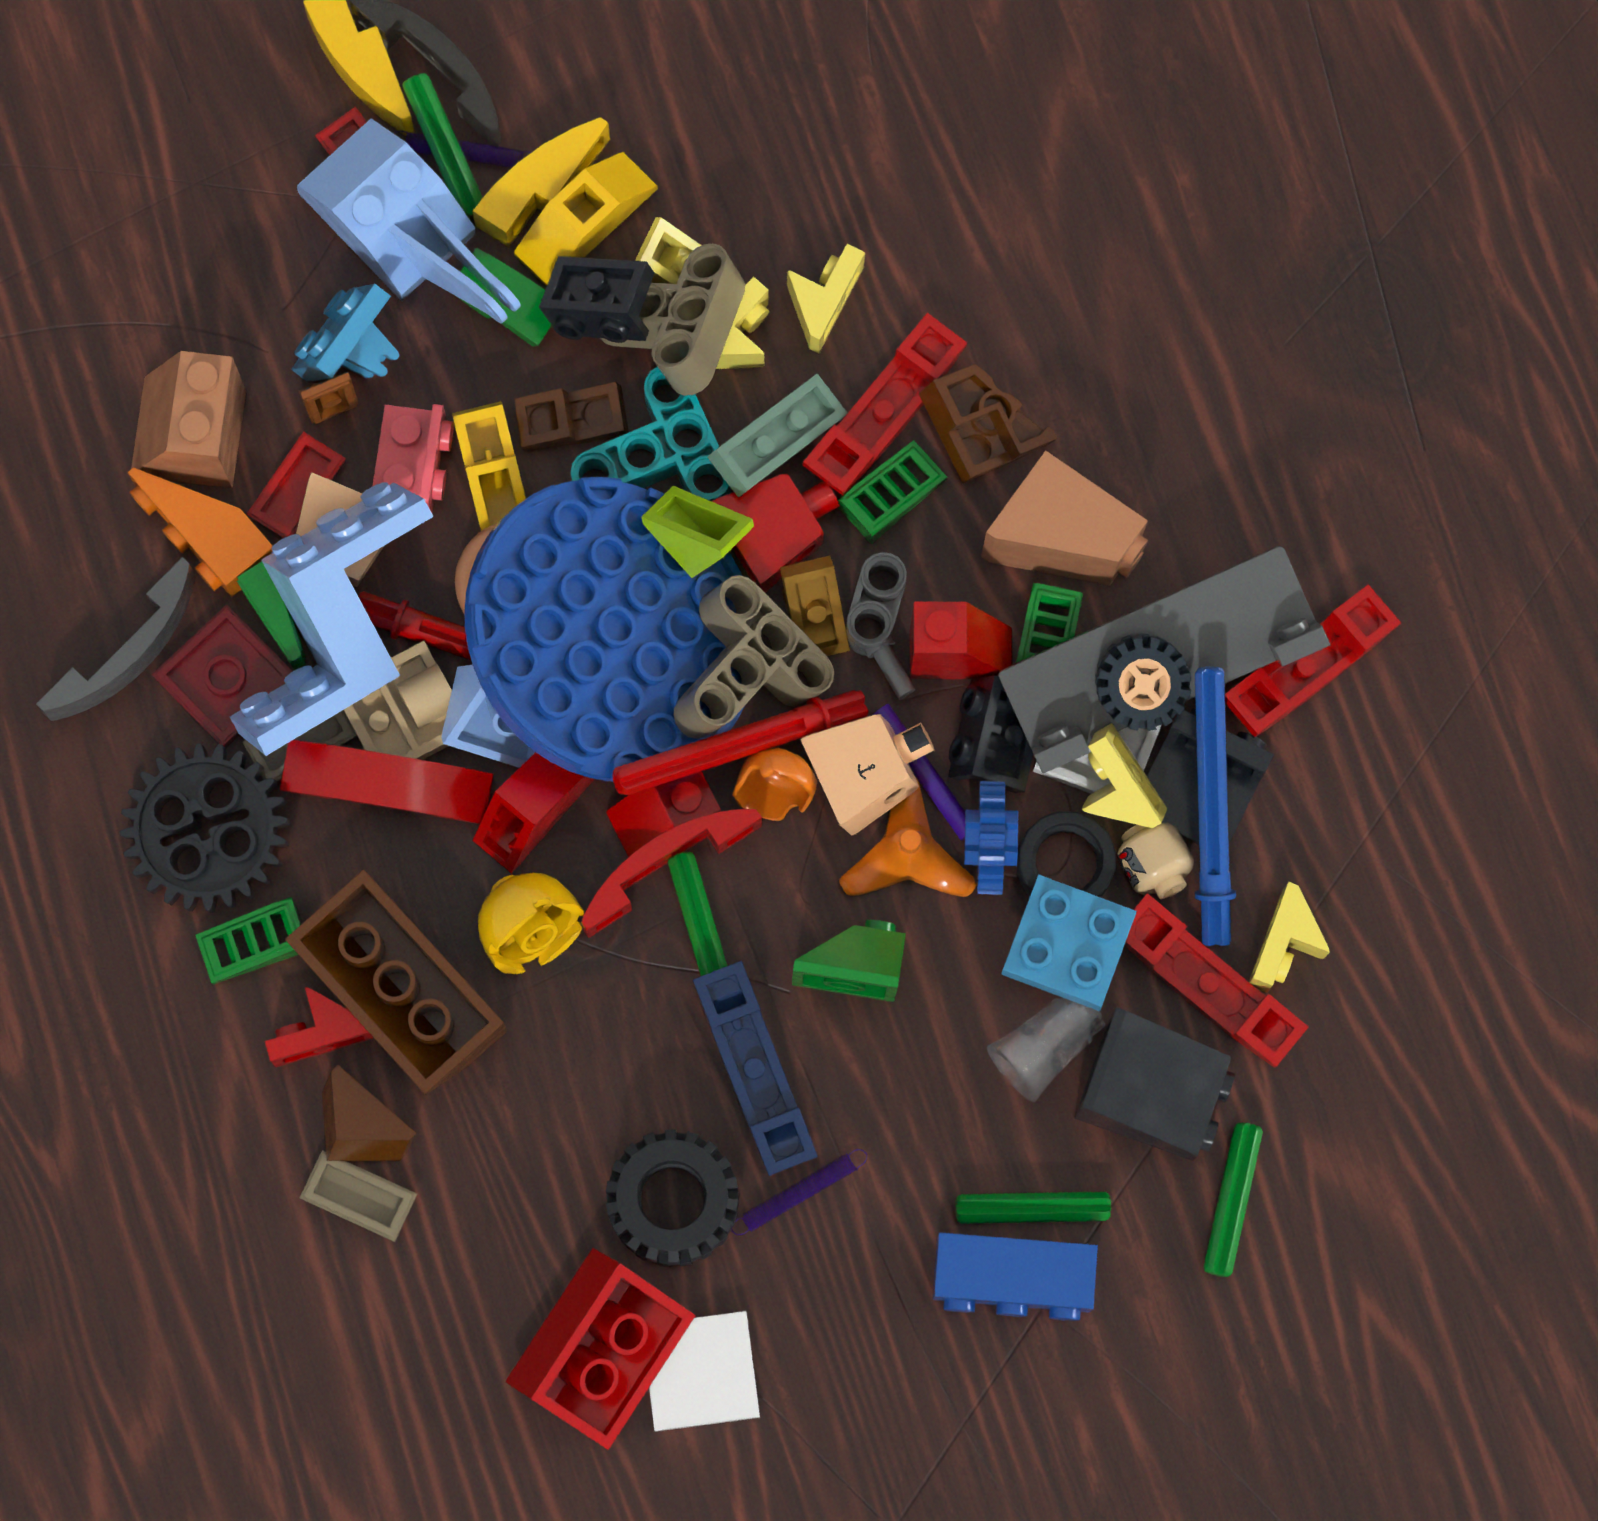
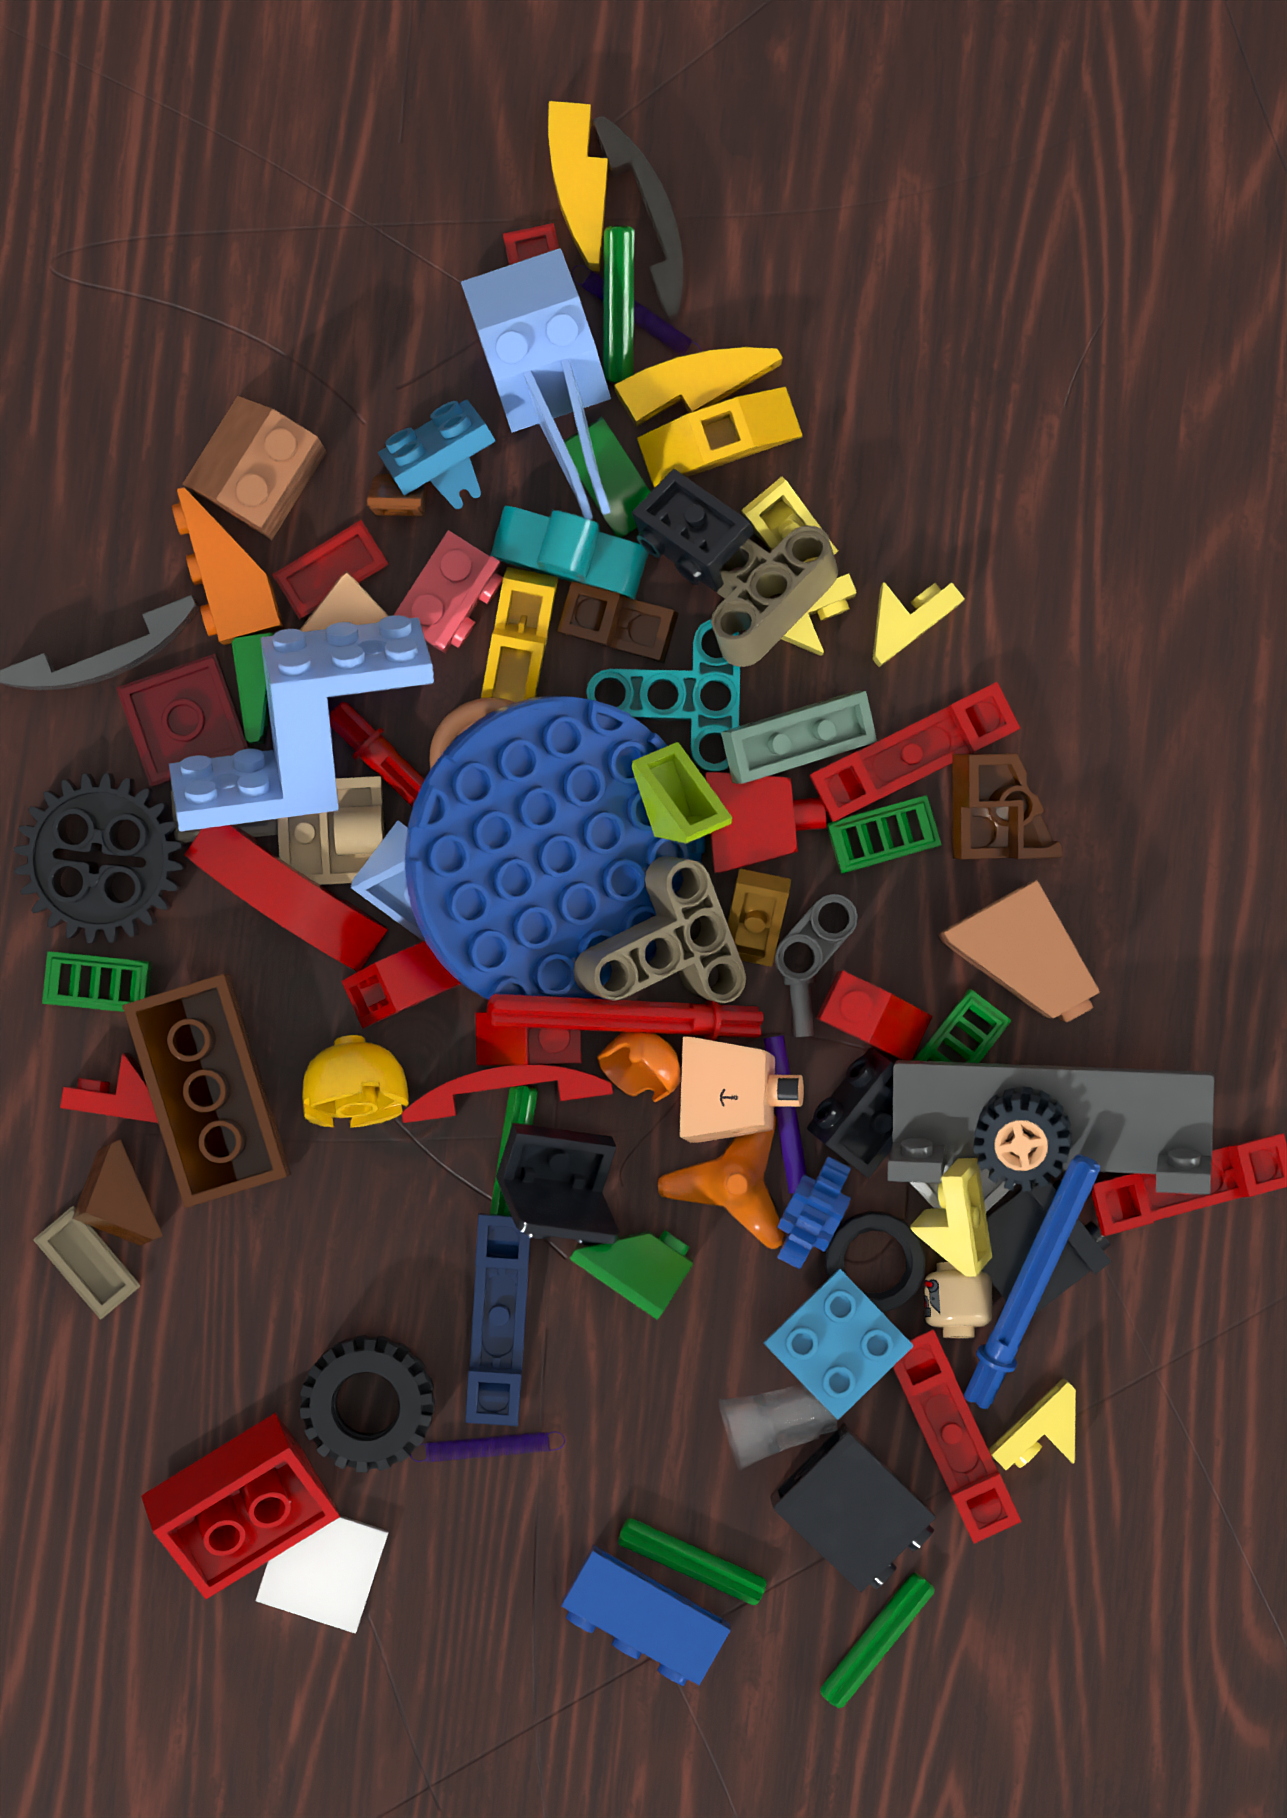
camera: 30 degrees right, 10 degrees up
(498, 367) = (569, 549): none -> teal beam
(749, 916) = (557, 1183): none -> black bracket

